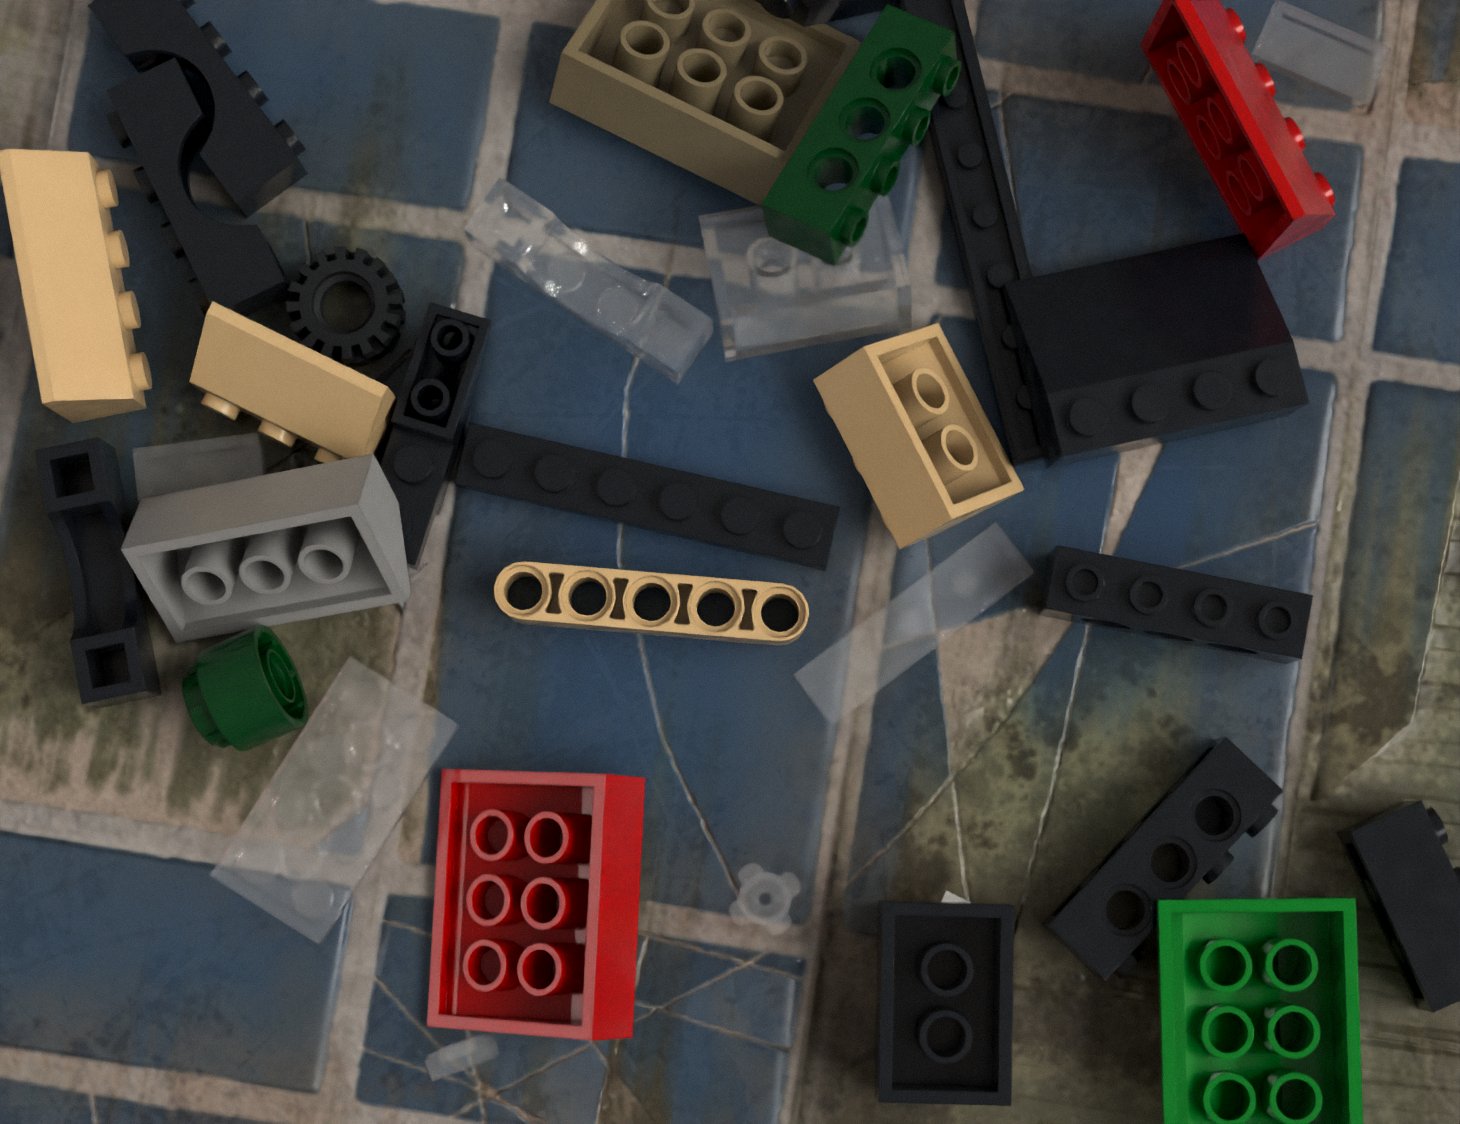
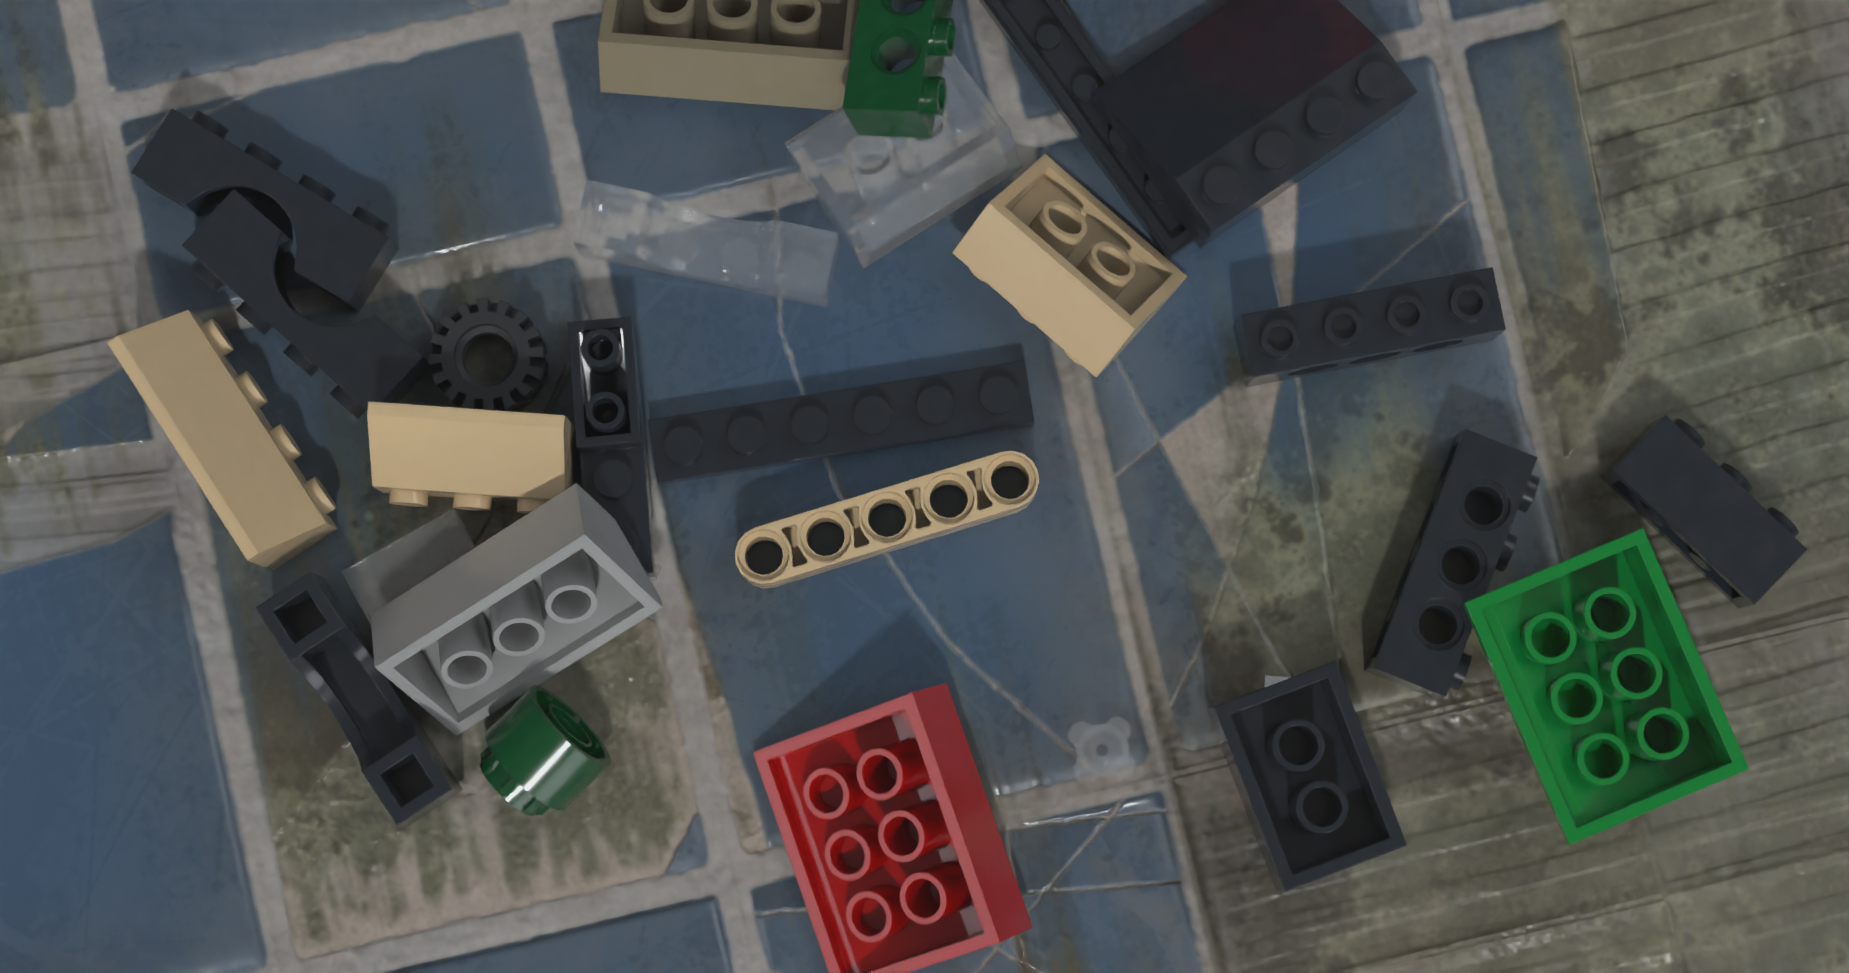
camera: 25 degrees left, 0 degrees up
(335, 800) = (666, 821): clear plate -> none
(913, 624) = (1135, 441): clear tile -> none

